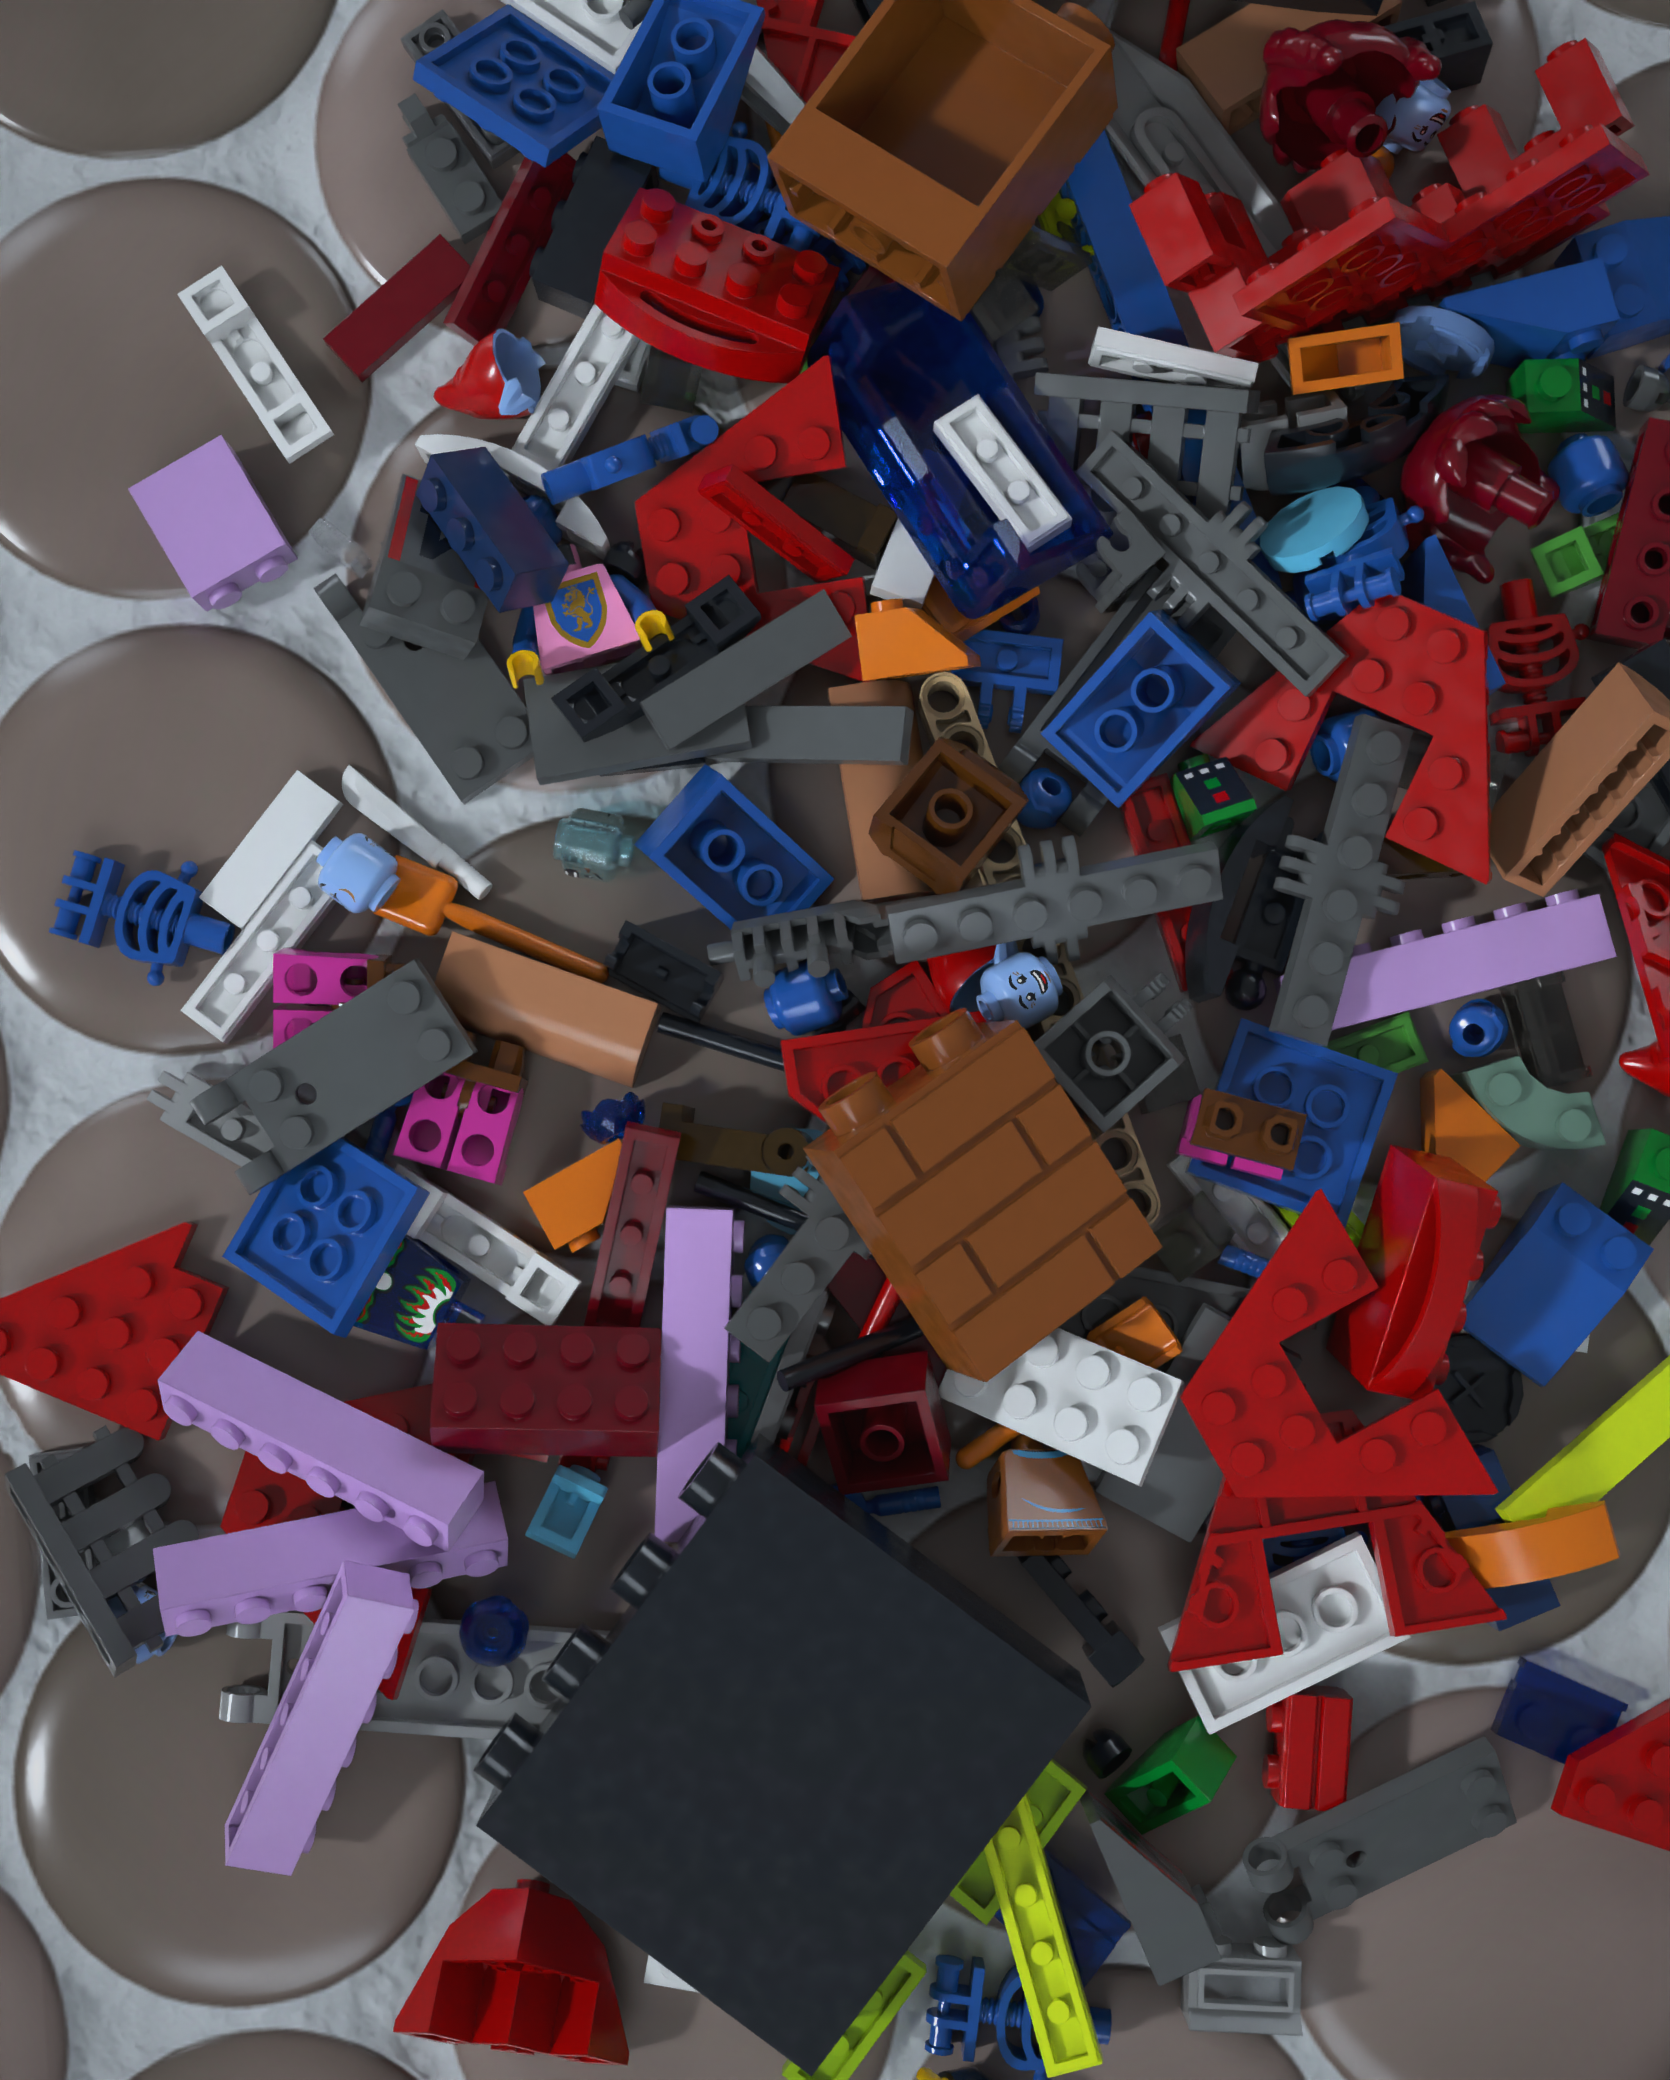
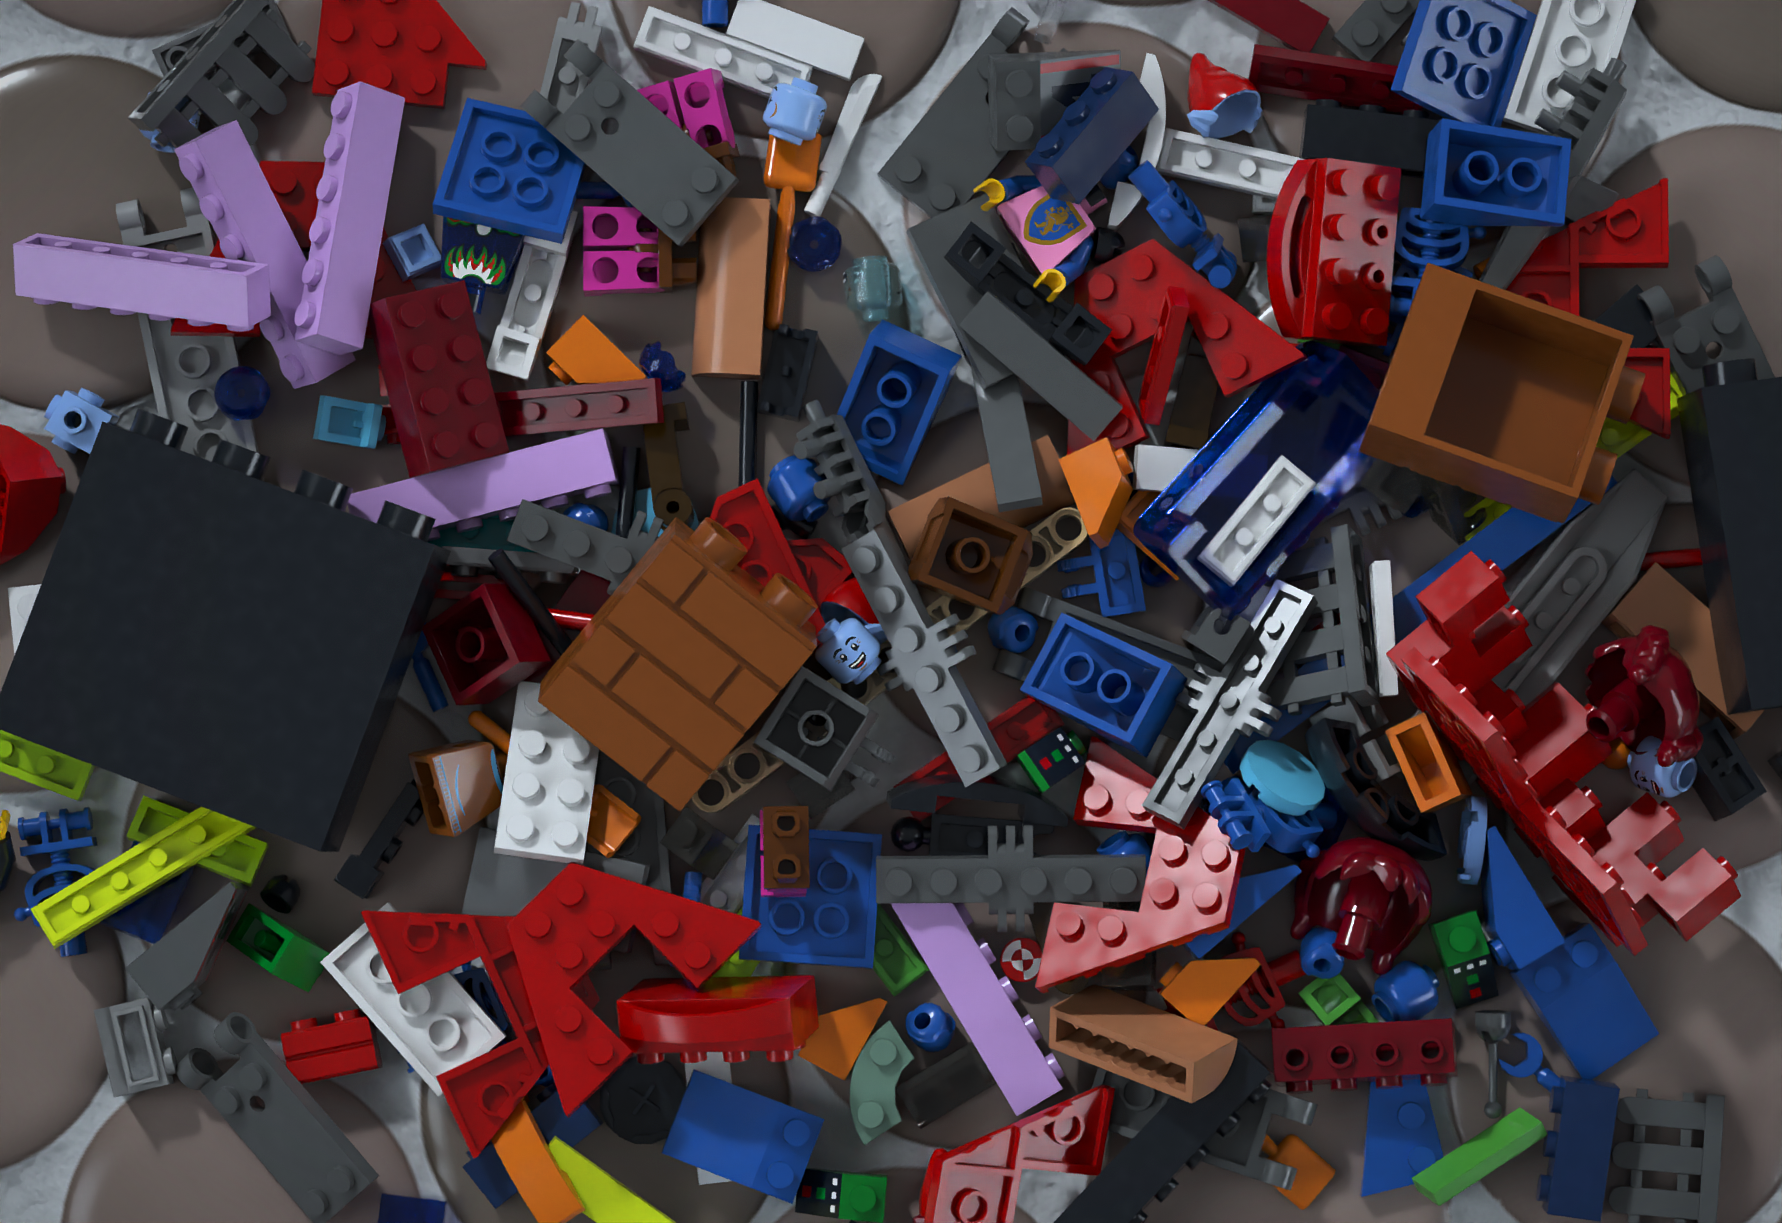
camera: 80 degrees right, 0 degrees up
(387, 1374) = (413, 252): none -> light blue tile
(458, 1846) = (62, 417): none -> light blue brick
(516, 881) = (818, 230): none -> clear blue plate
(1425, 901) = (1021, 959): none -> tile
(1520, 552) = (1317, 954): none -> blue piece
(1534, 692) = (1204, 985): none -> orange slope

